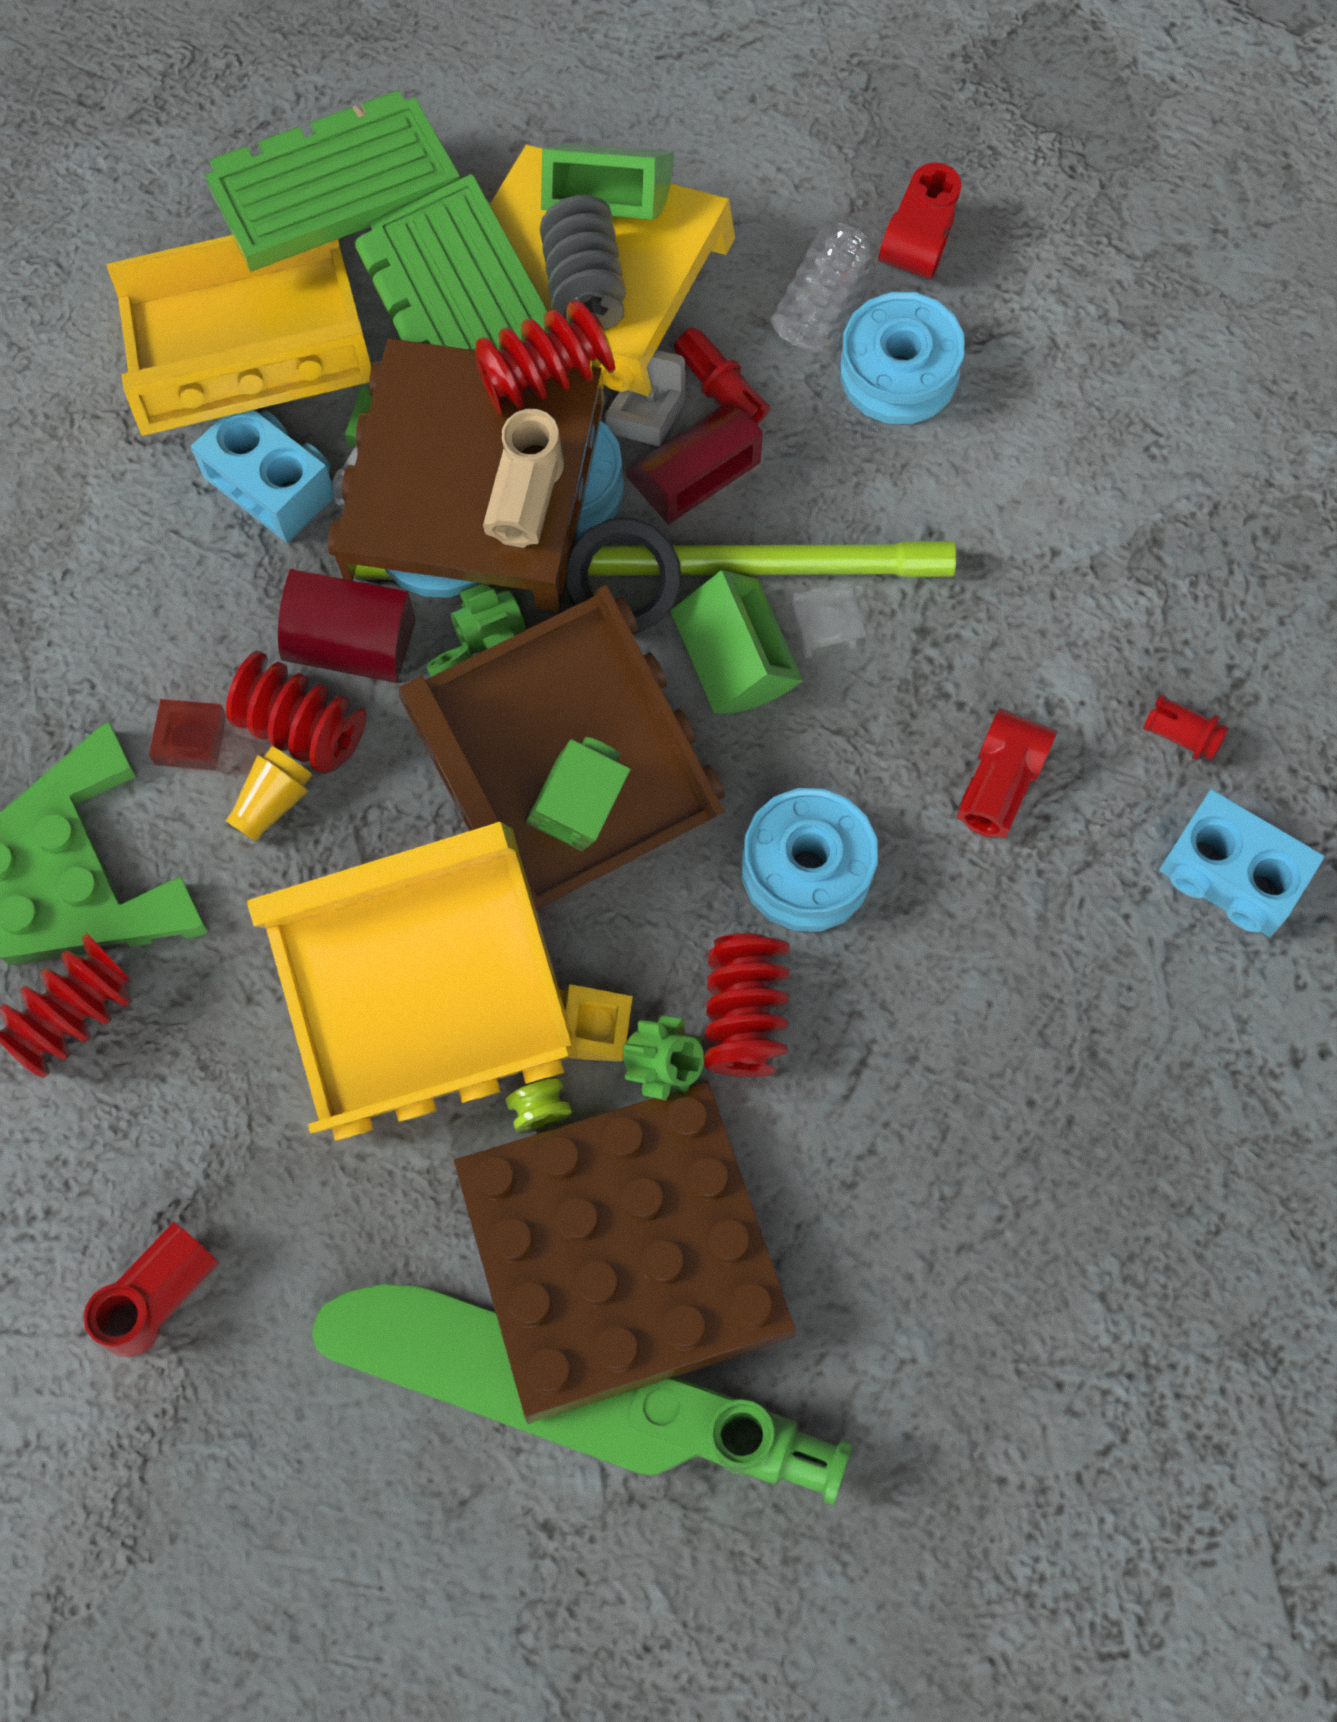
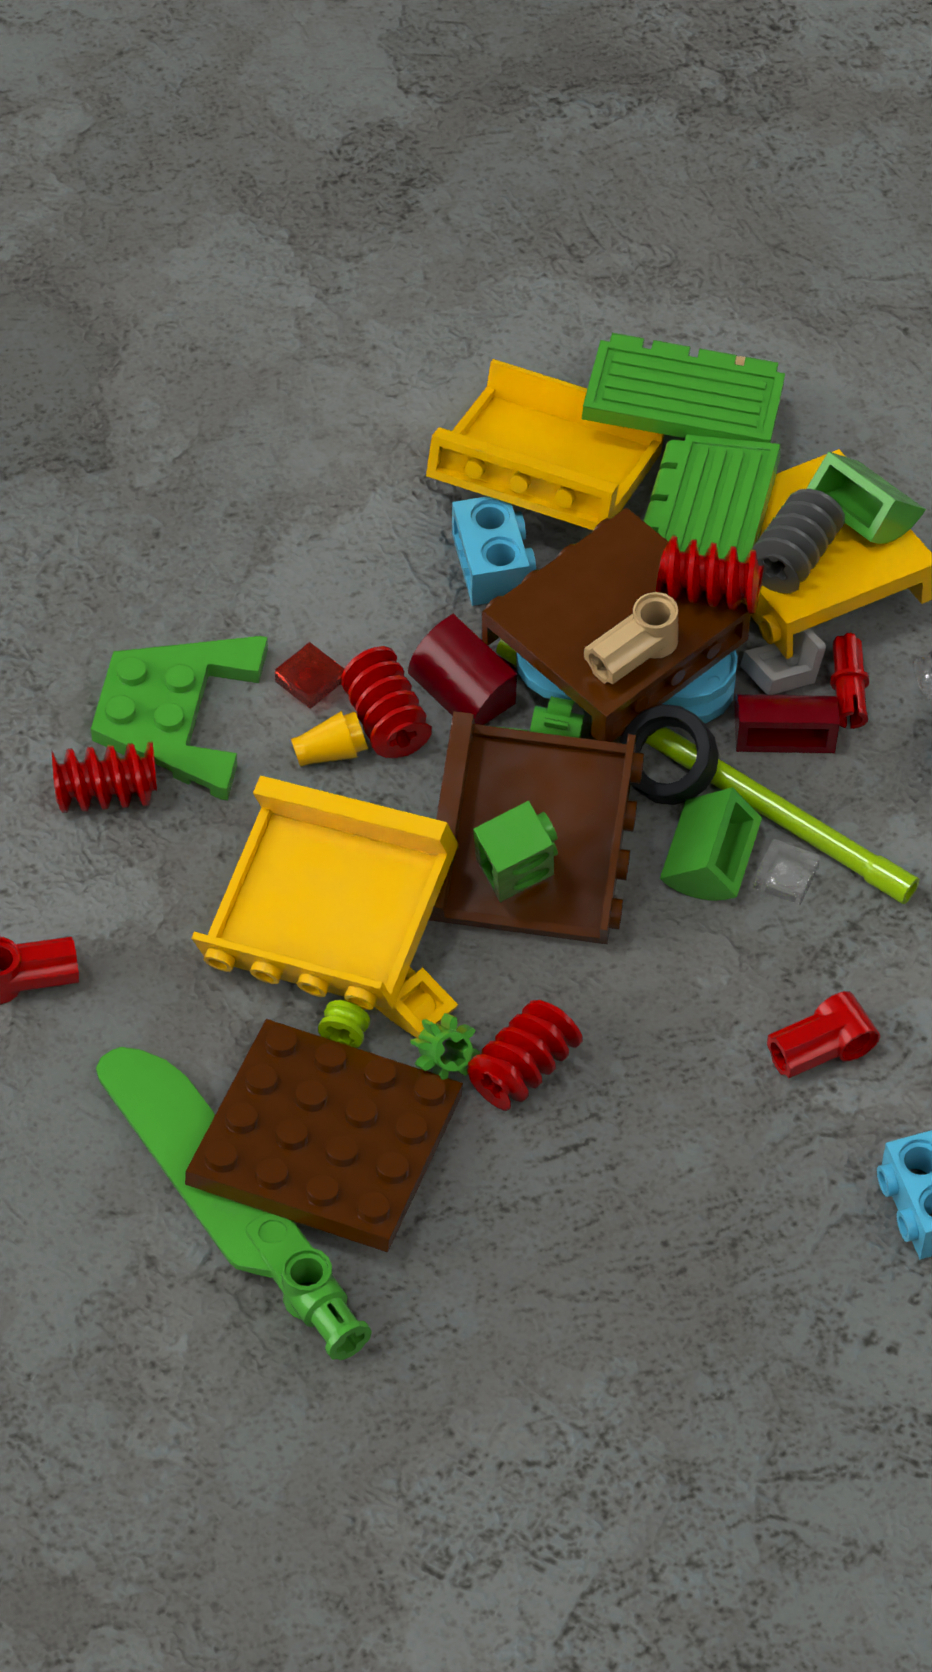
camera: 35 degrees right, 15 degrees down
(818, 824) = (636, 1027): medium azure wheel -> none

